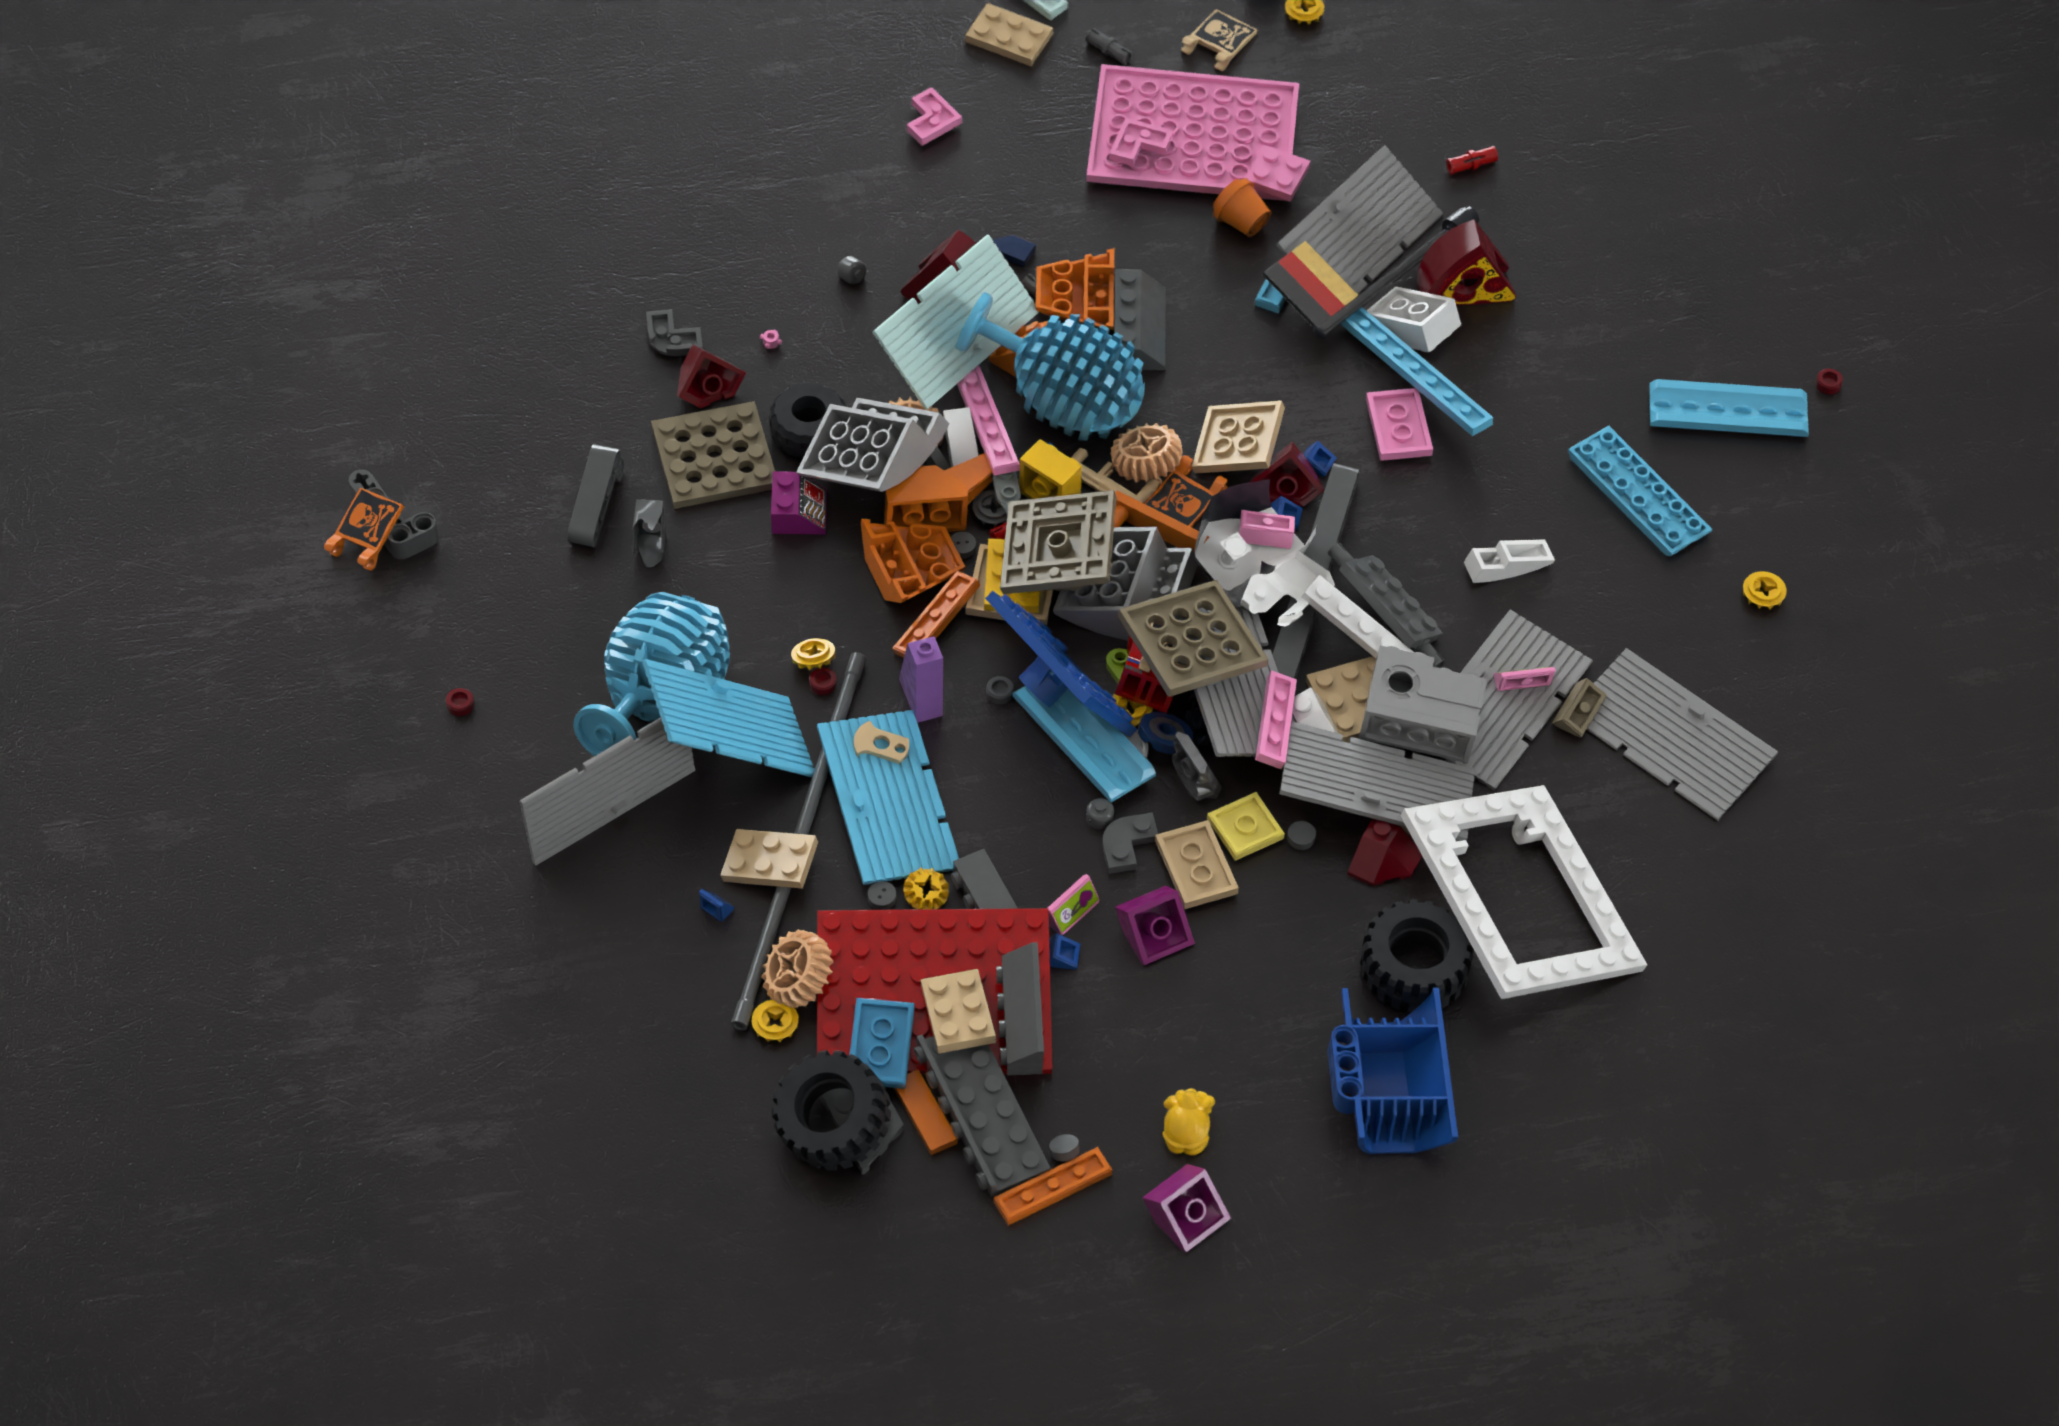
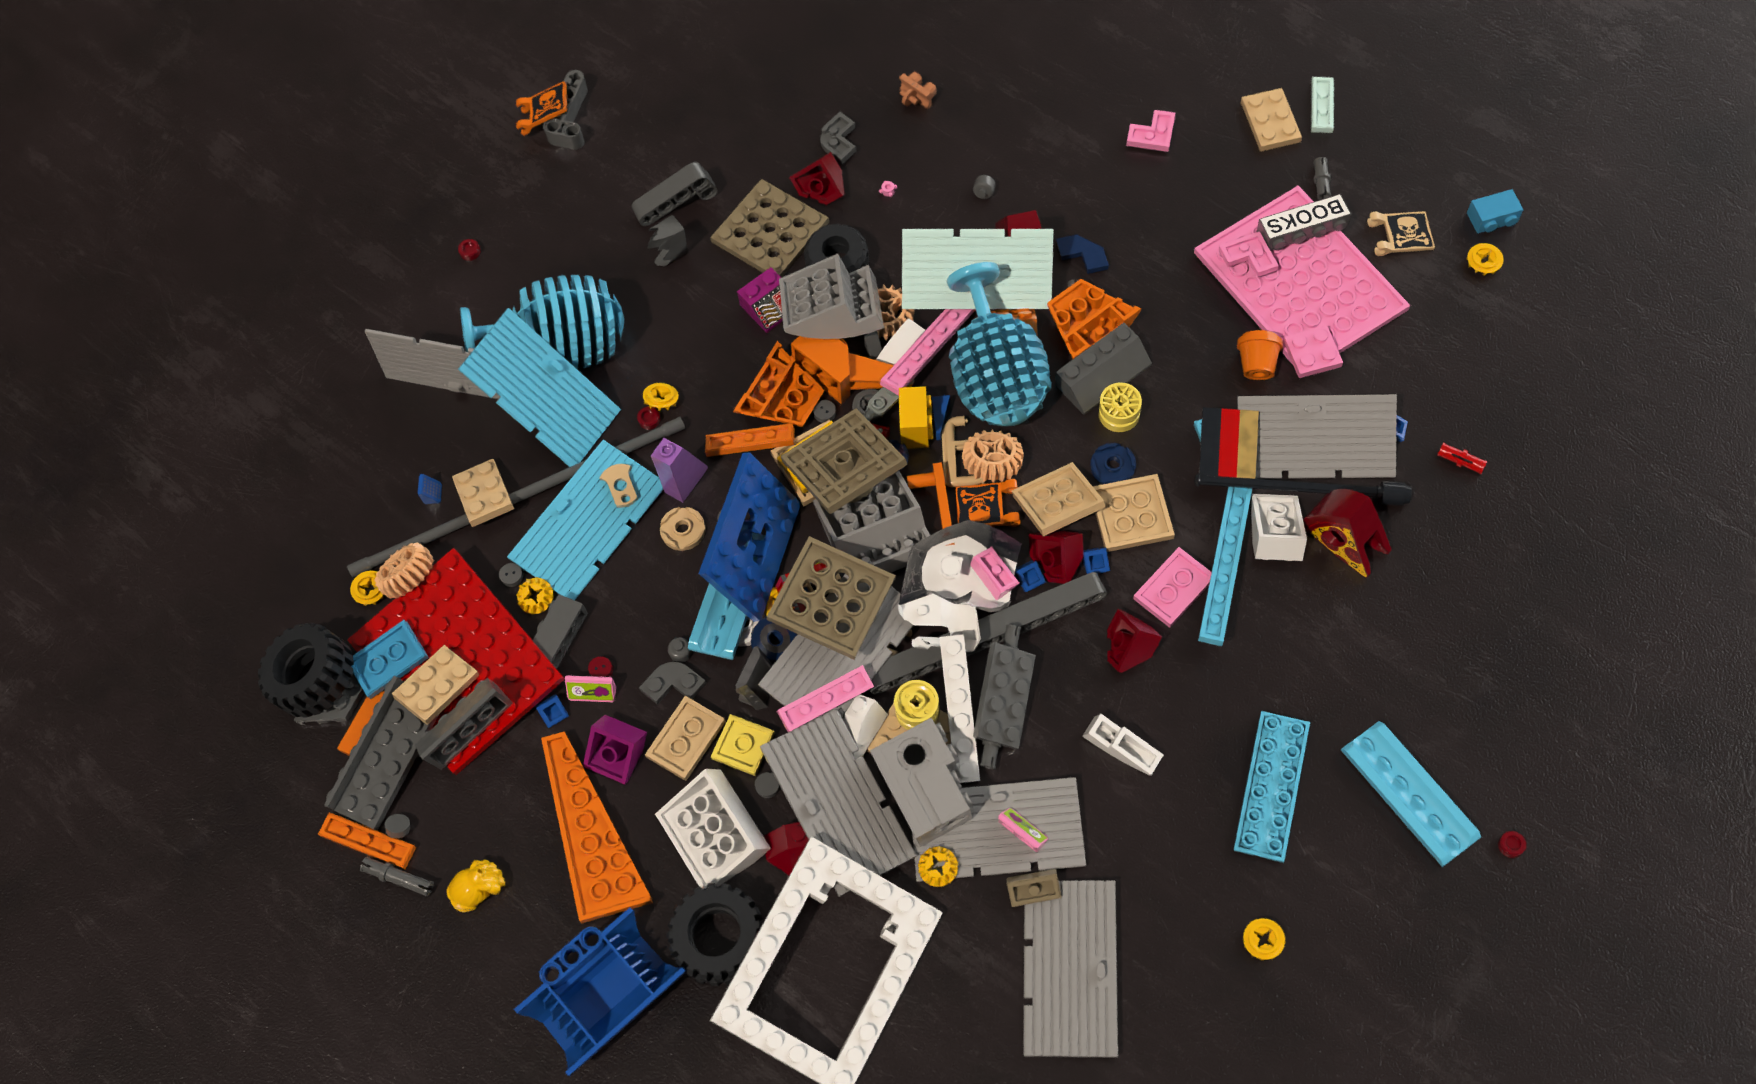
camera: 60 degrees right, 10 degrees up
(688, 244) = (914, 92): none -> nougat hips
(977, 744) = (687, 539): none -> tan tile
(1055, 885) = (600, 667): none -> dark red tile
(1106, 1184) = (387, 872): none -> dark grey pin
(1149, 83) = (1304, 222): none -> brick
(1187, 1206) = (404, 935): magenta slope -> none
(1190, 335) = (1120, 407): none -> light yellow wheel
(1237, 371) = (1112, 452): none -> dark blue tile
(1253, 1009) = (597, 860): none -> orange wing
(1308, 397) = (1133, 513): none -> tan plate
(1308, 902) = (712, 829): none -> white slope
(1342, 665) = (916, 693): none -> light yellow wheel
(1420, 487) = (1130, 641): none -> dark red slope
(1487, 761) = (934, 877): none -> yellow gear

